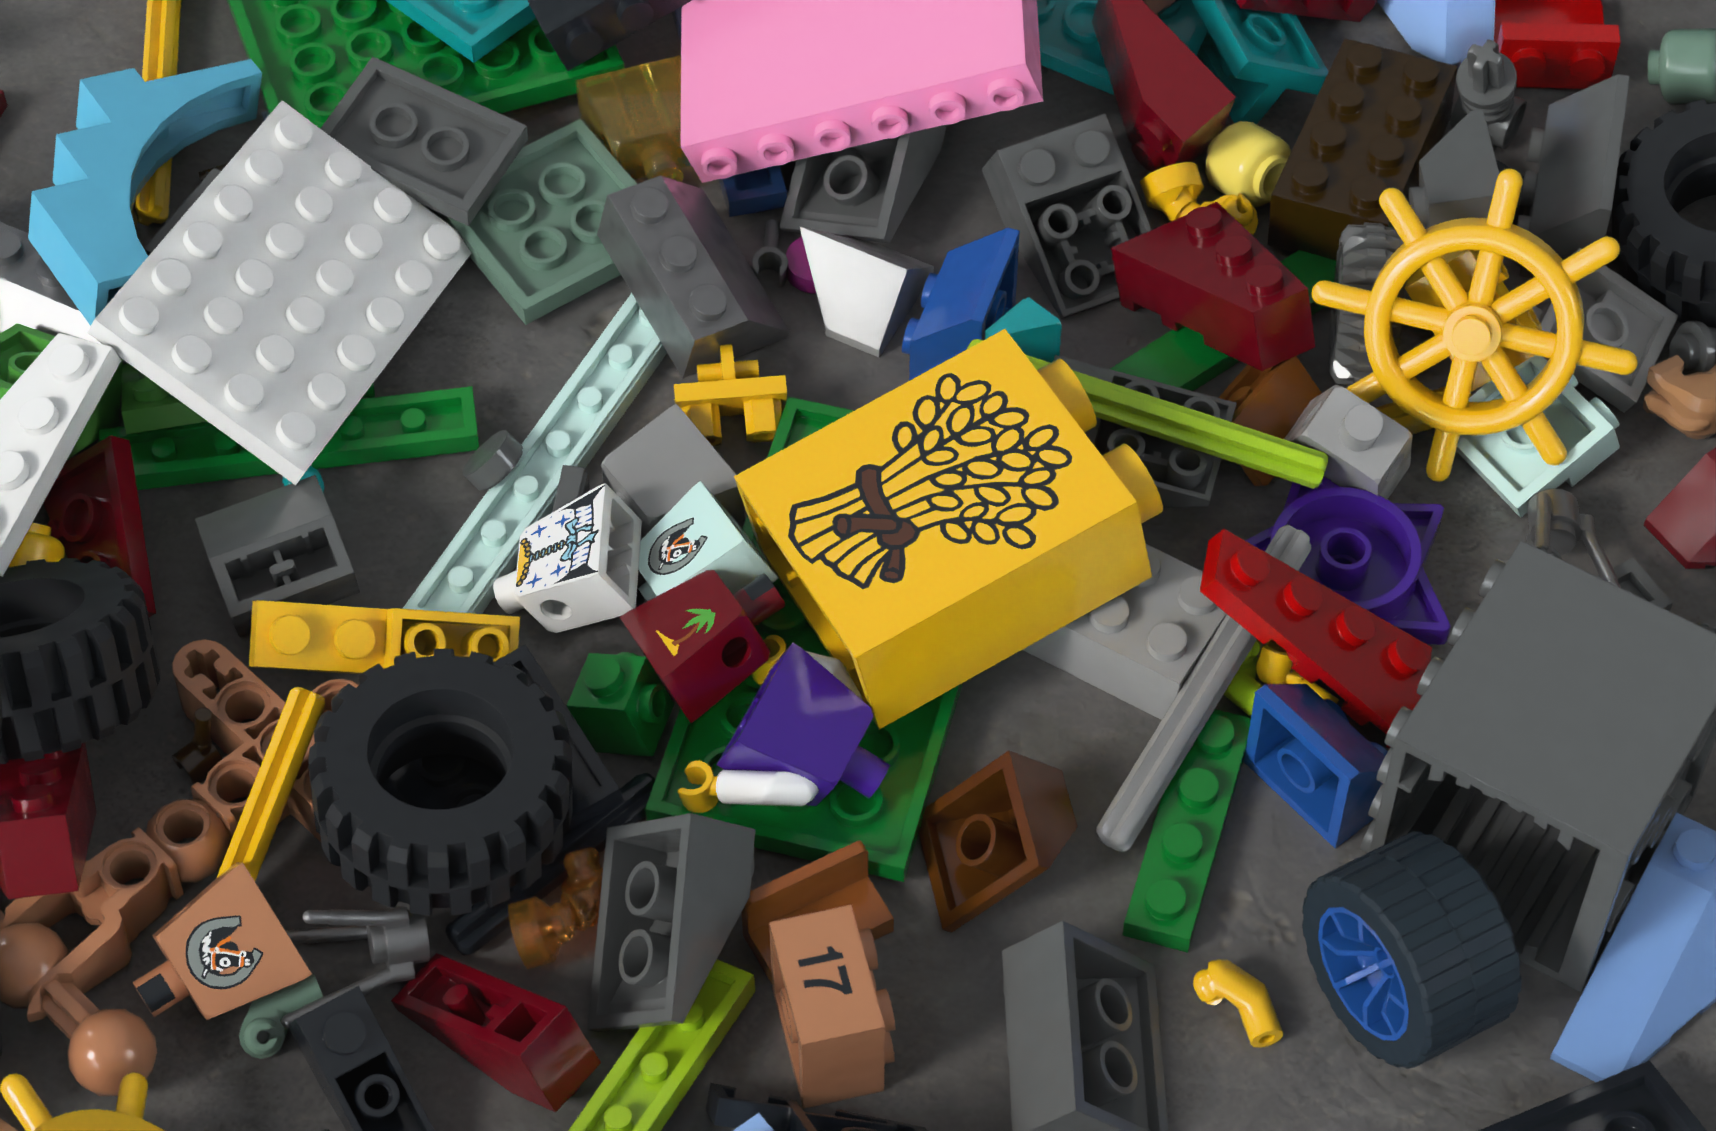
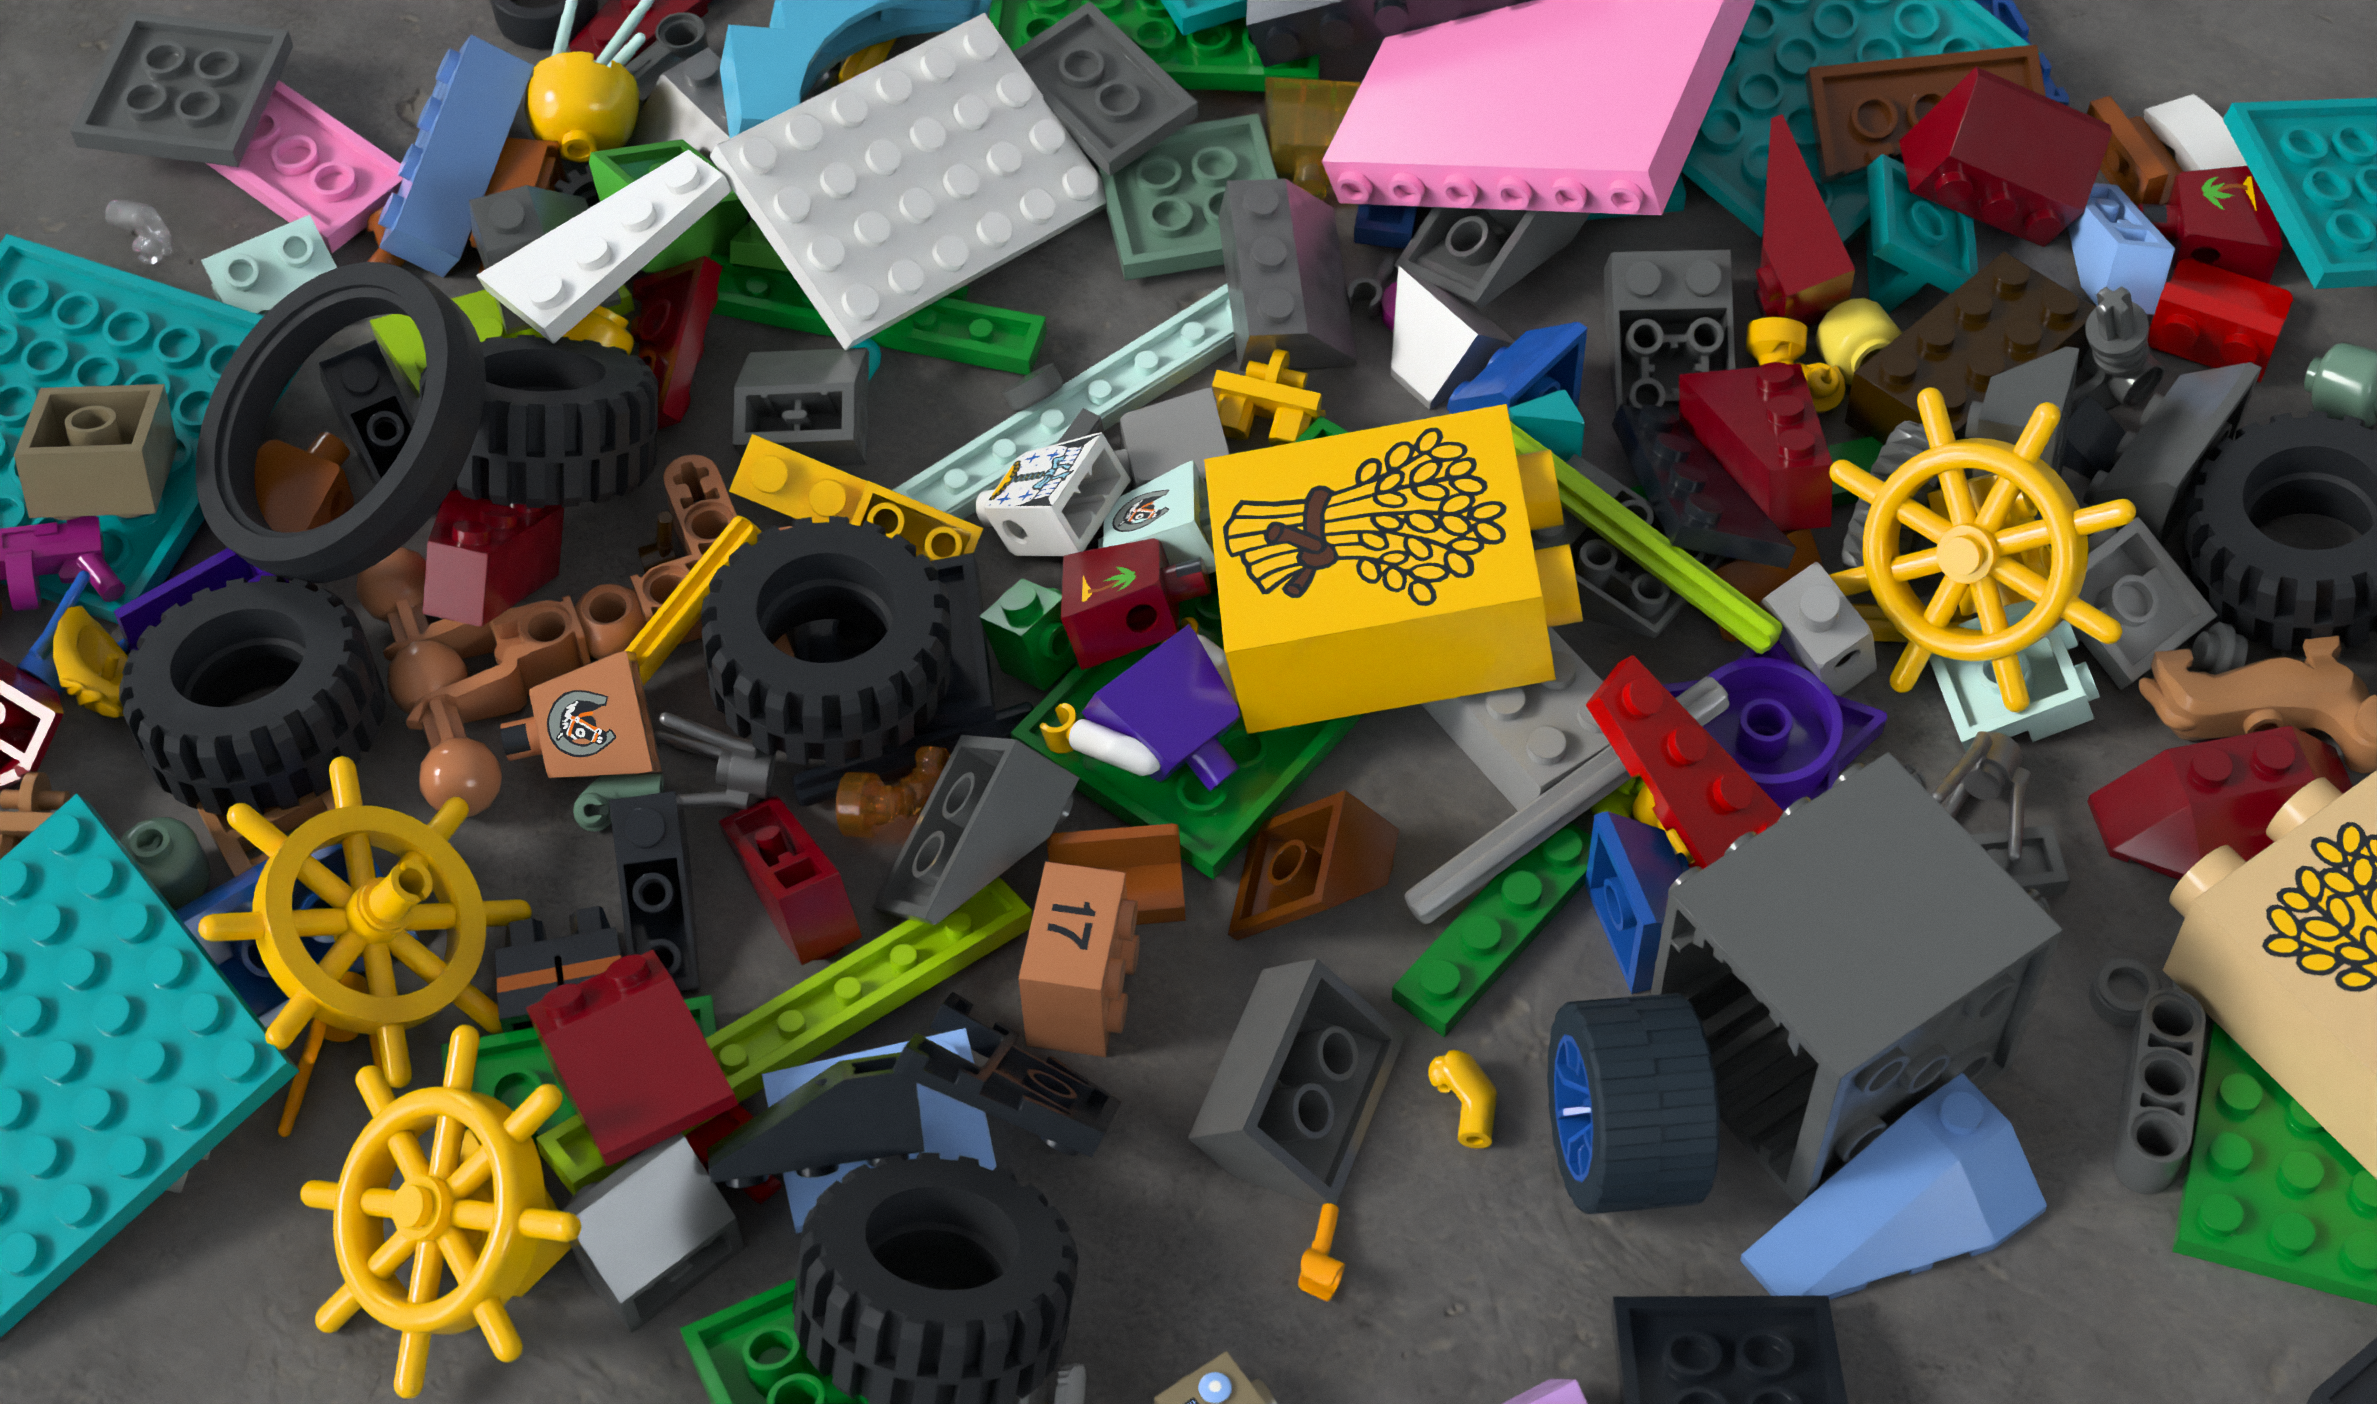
camera: 25 degrees right, 0 degrees up
(1177, 356) = (1694, 493): none -> black wing

